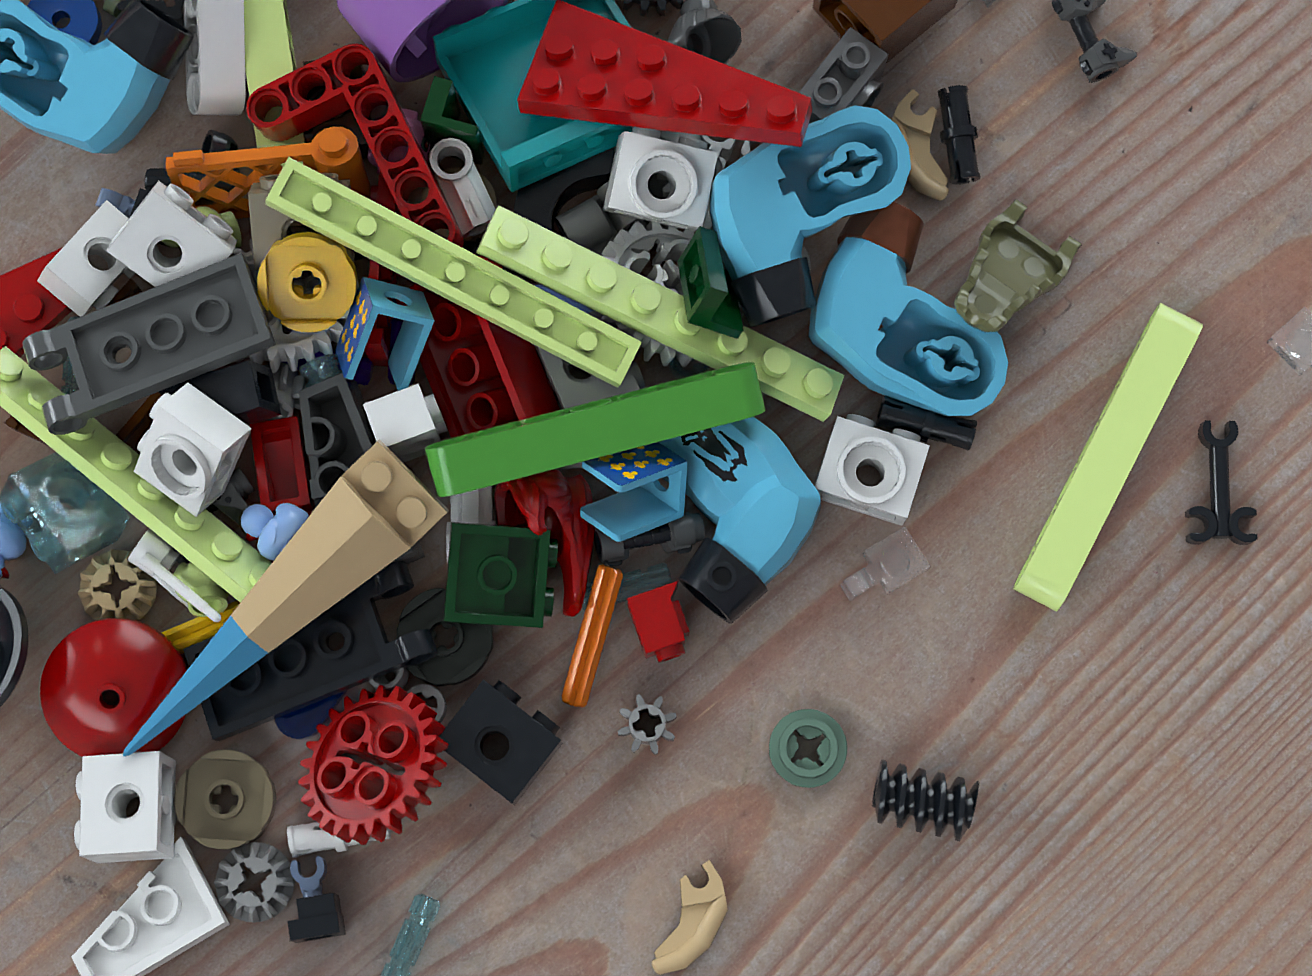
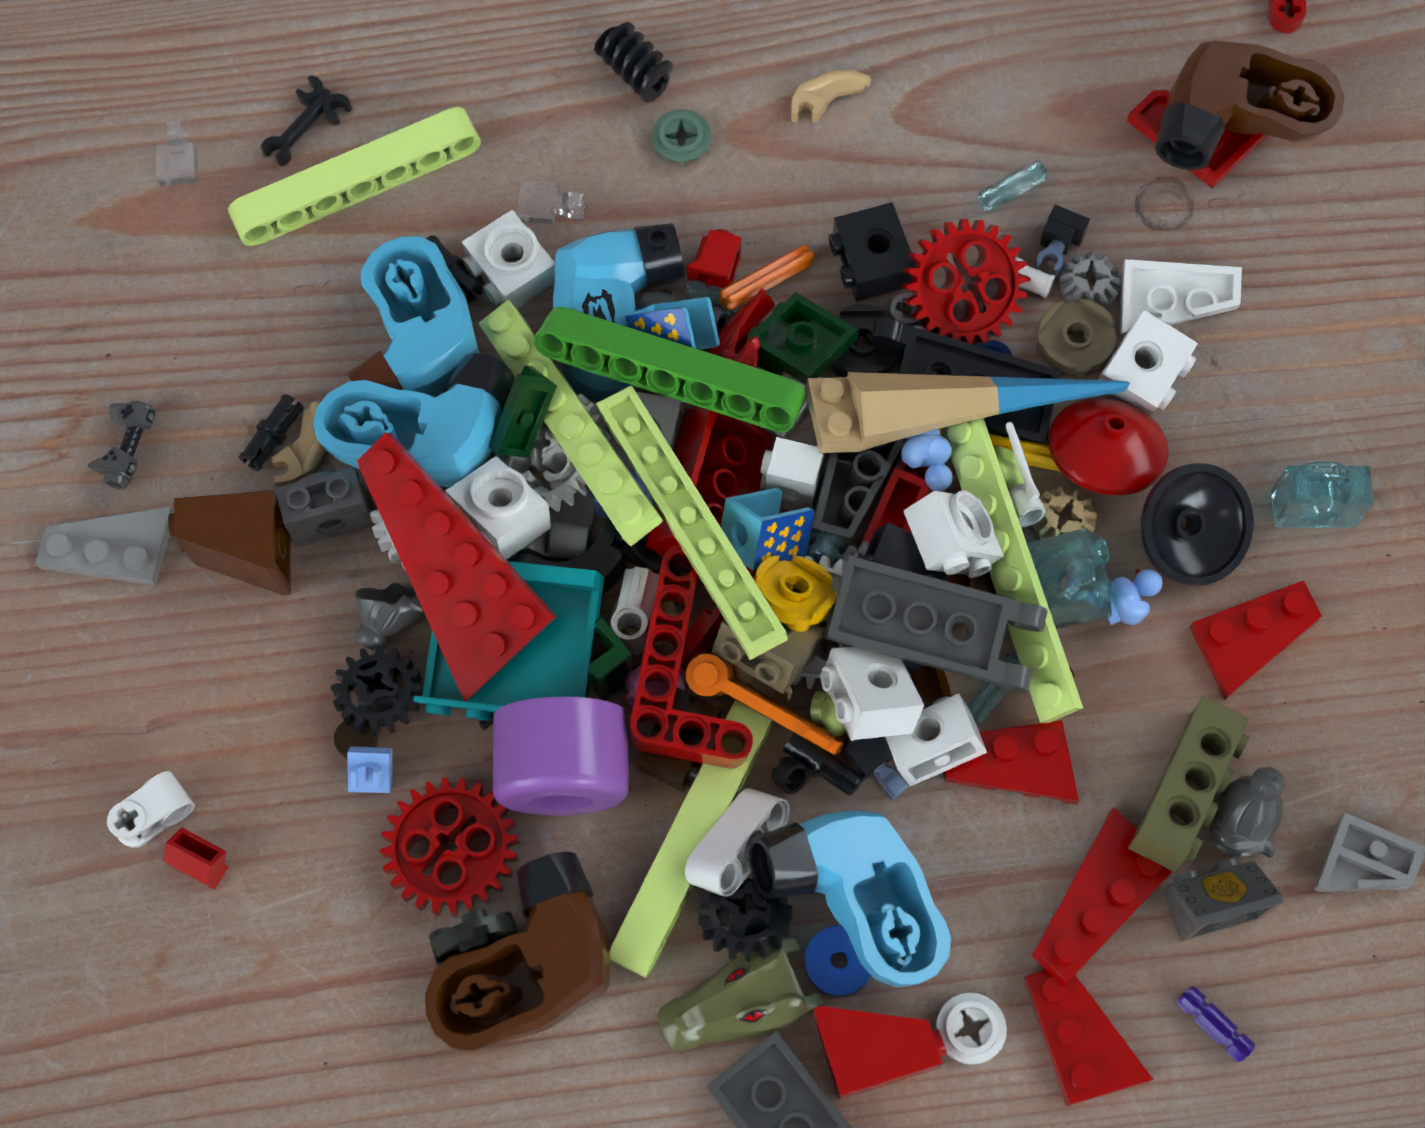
camera: 140 degrees left, 10 degrees down
(634, 718) = (771, 207): light grey gear -> none
(1010, 271) = (314, 309): olive animal -> none

